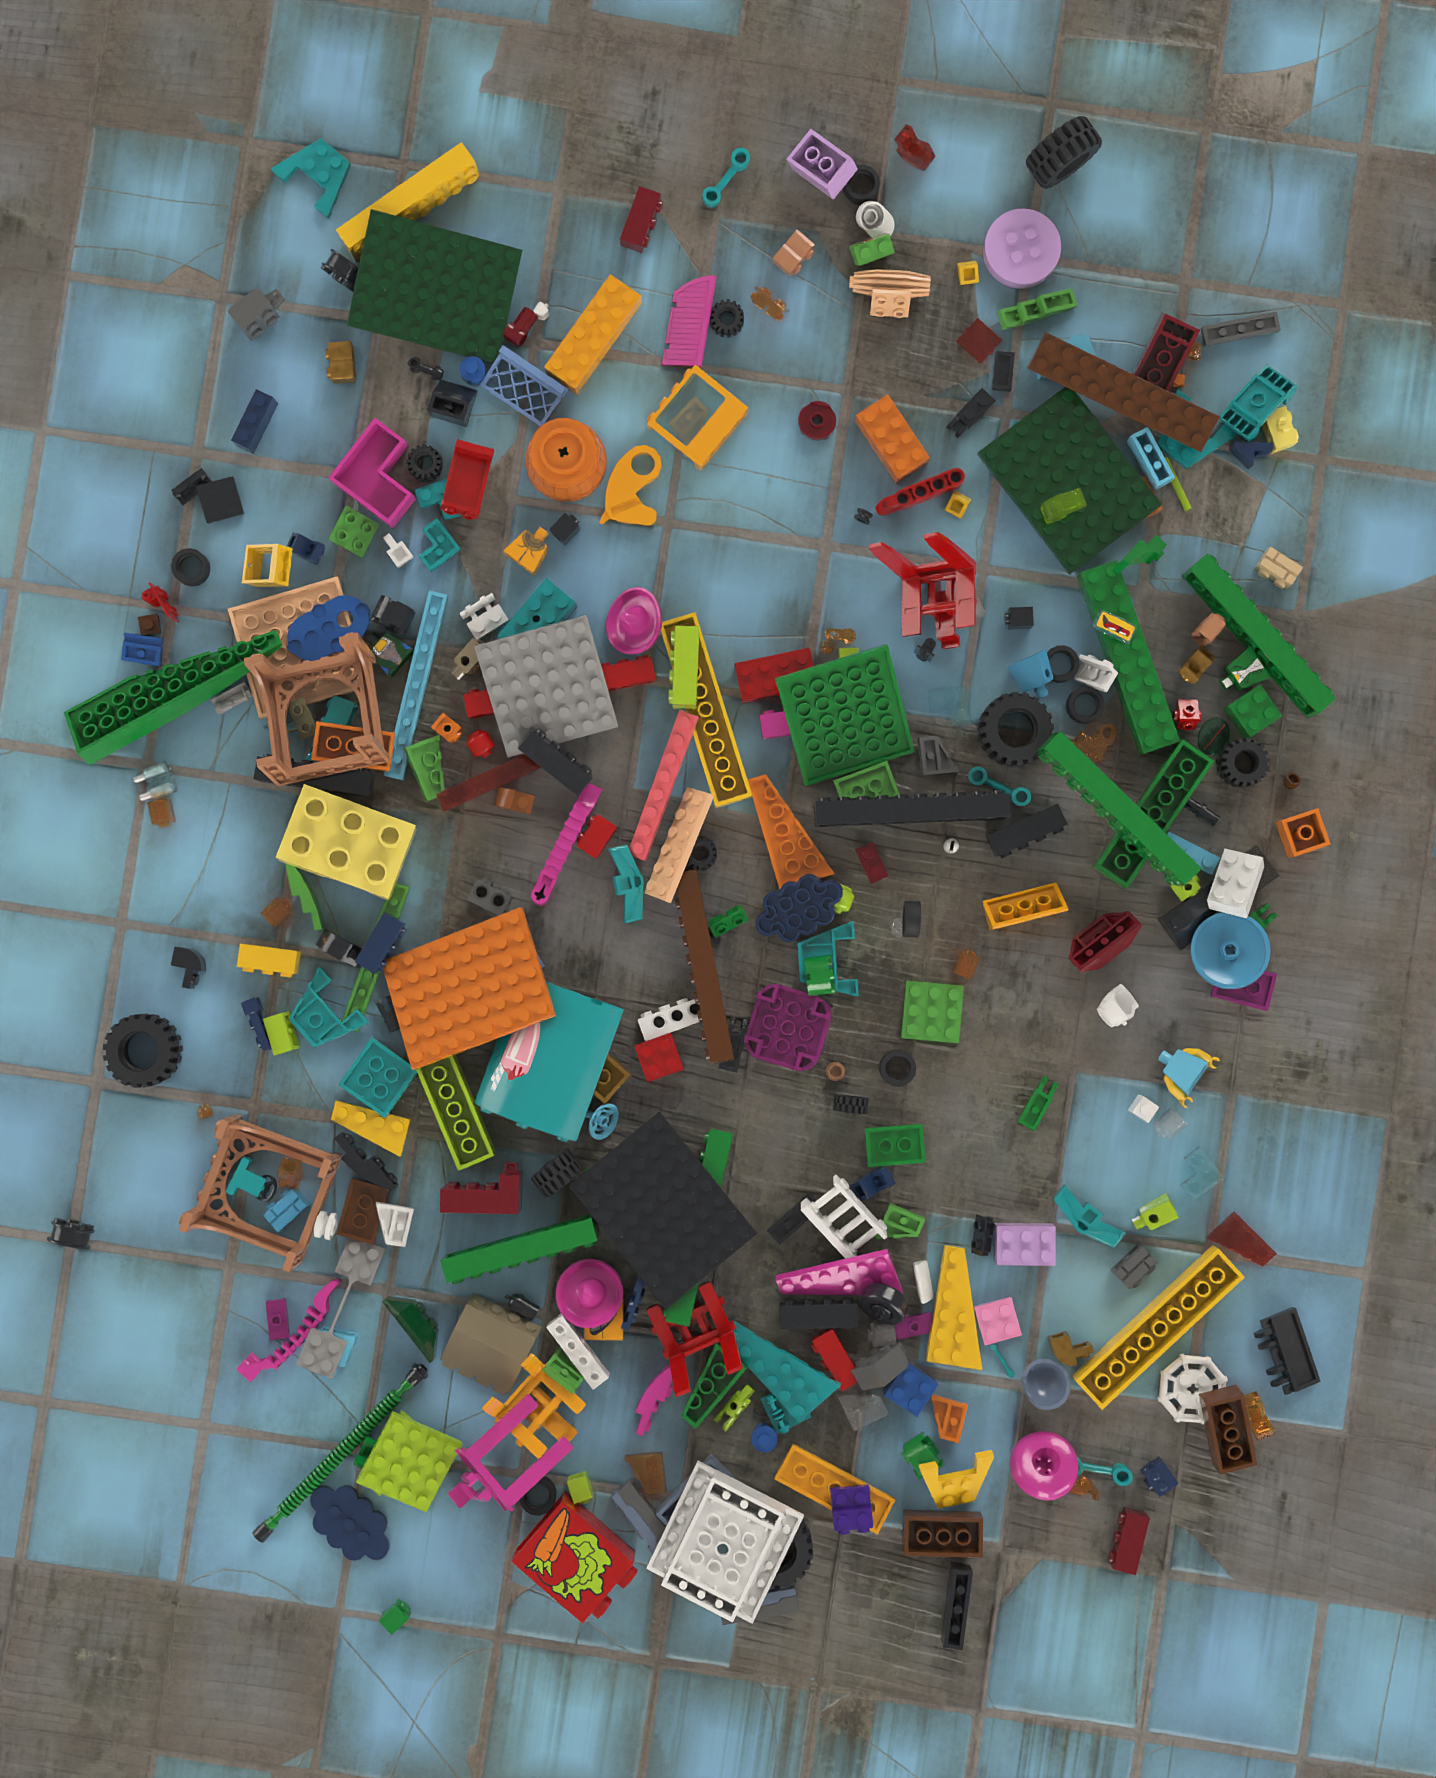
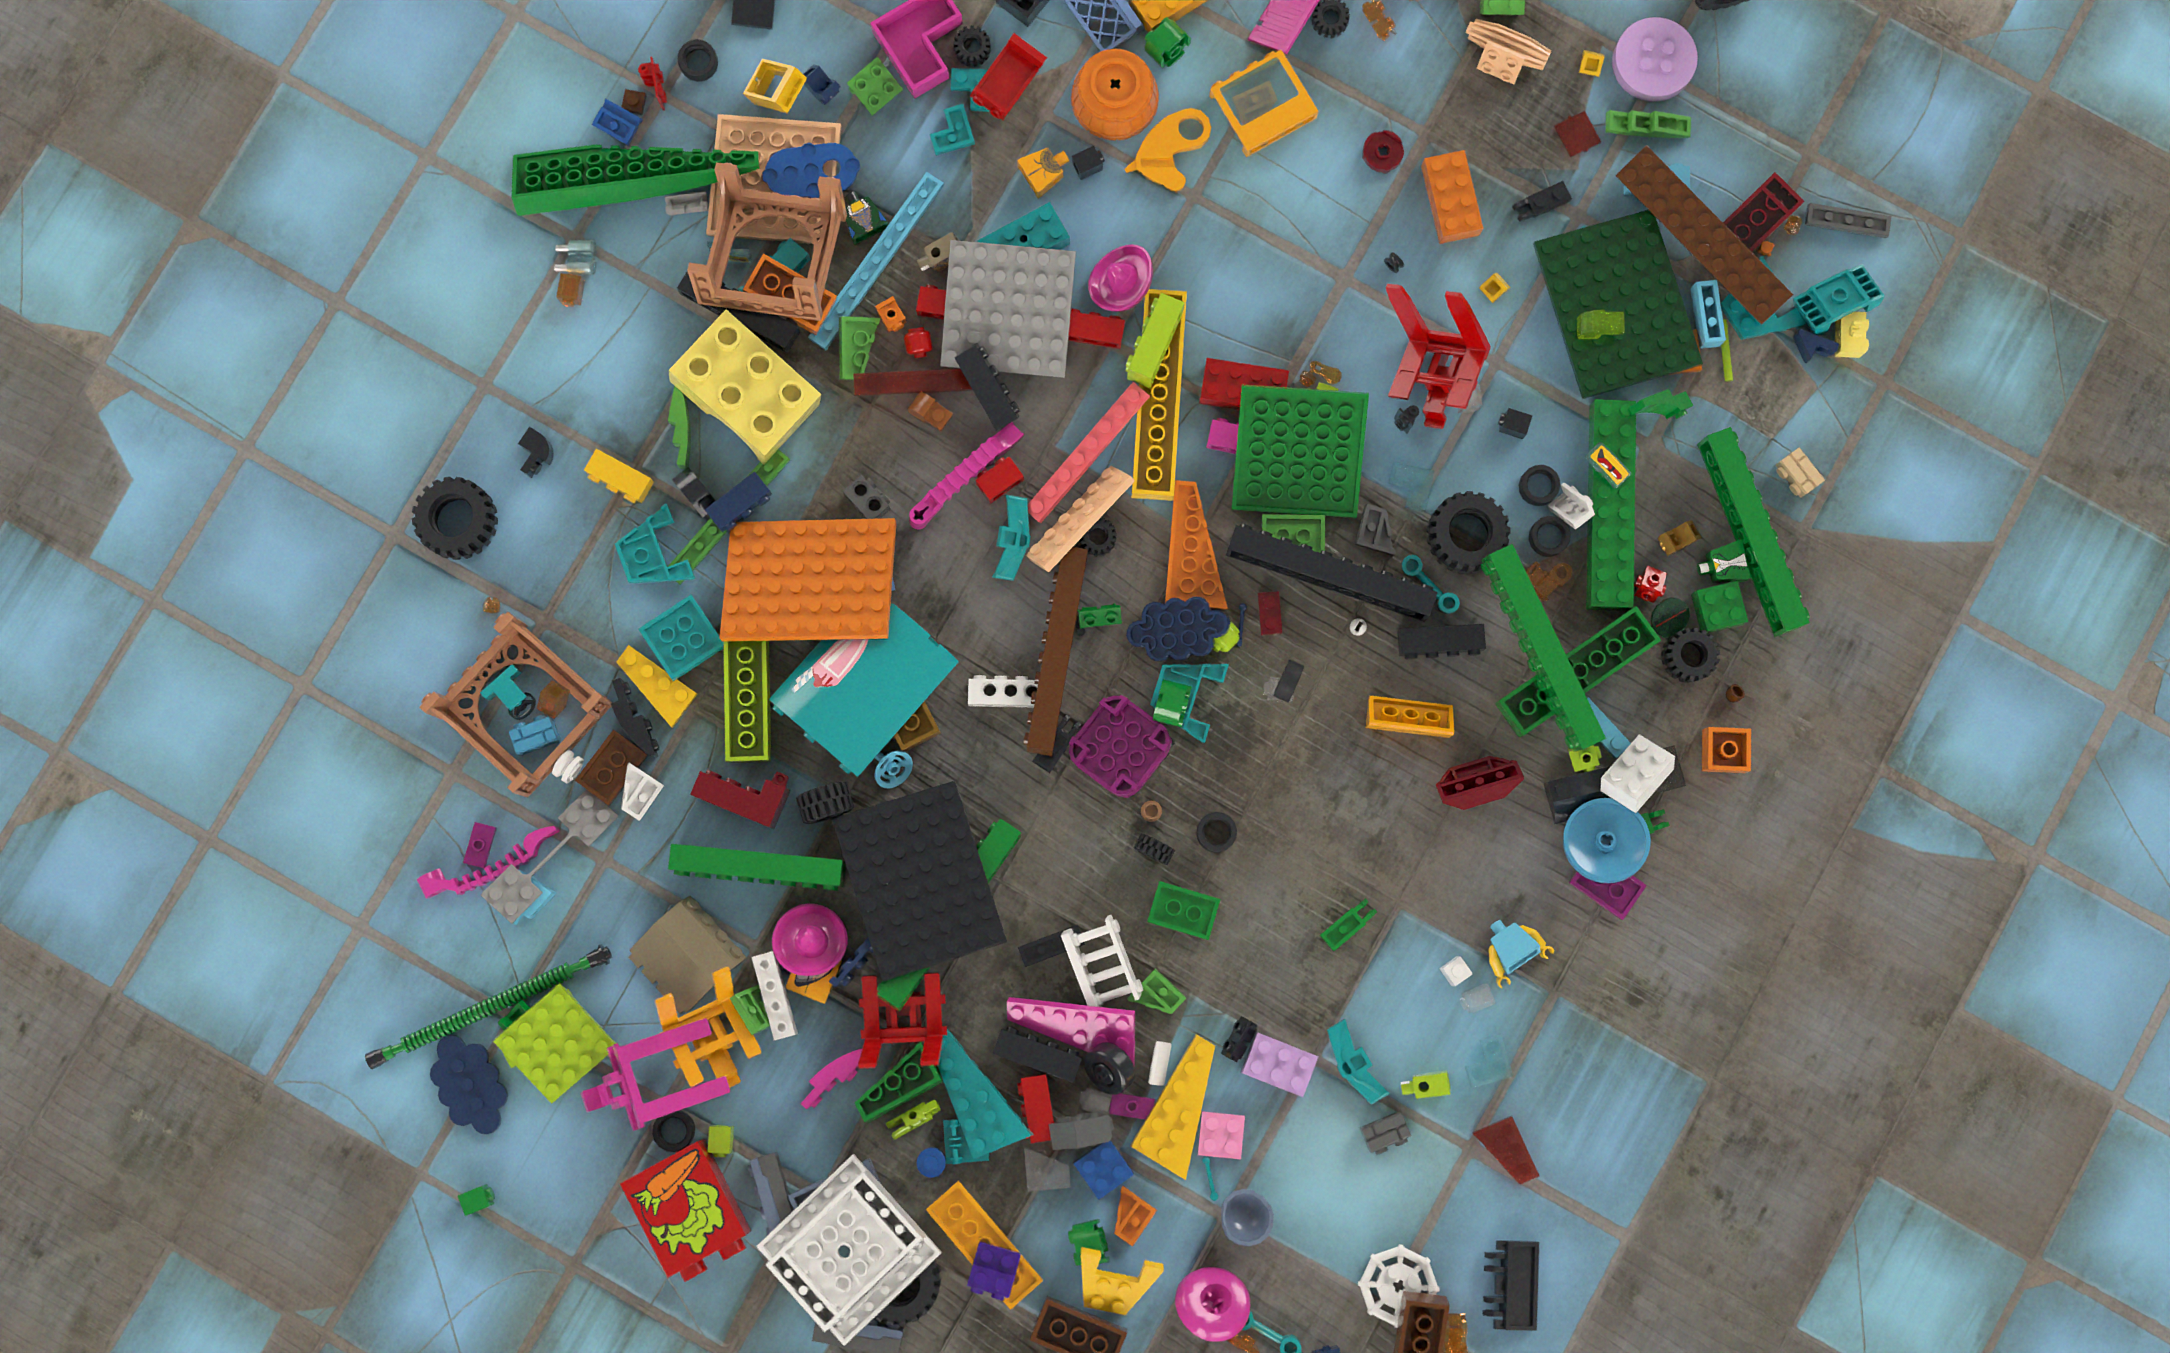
camera: 15 degrees right, 5 degrees down
(71, 1233) = (307, 674): black wheel -> none
(253, 1008) = (582, 519): dark blue plate -> none
(277, 911) = (646, 432): clear orange brick -> none
(281, 1033) = (601, 555): lime hinge -> none
(302, 718) = (749, 248): olive hinge -> none
(389, 1017) = (717, 580): black hinge -> none
(393, 615) = (881, 181): black brick -> none
(399, 552) = (910, 123): white plate -> none
(416, 1323) = (619, 904): dark green wedge -> none
(486, 622) = (972, 225): white plate -> none
(522, 1305) = (735, 928): black piece -> none
(593, 396) = (1166, 43): none -> green brick
(649, 1471) = (799, 1150): clear orange wing -> none
(659, 1057) = (976, 726): red brick -> none
(846, 866) = (1242, 607): none -> dark blue hinge
(872, 1183) = (1145, 940): dark blue brick -> none
(892, 504) = (1427, 261): red piece -> none
(932, 1011) = (1274, 788): bright green plate -> none
(966, 964) = (1327, 752): clear orange brick -> none
(1003, 371) = (1590, 173): black tile -> none
(1033, 673) = (1507, 482): dark azure torso -> none
(1065, 1351) = (1278, 1192): pearl gold brick -> none
(1117, 1006) = (1468, 855): white helmet -> none
(1157, 1326) = (1386, 1204): yellow brick -> none
(1201, 811) = (1629, 688): black pin -> none
(1208, 629) = (1704, 506): nougat brick -> none

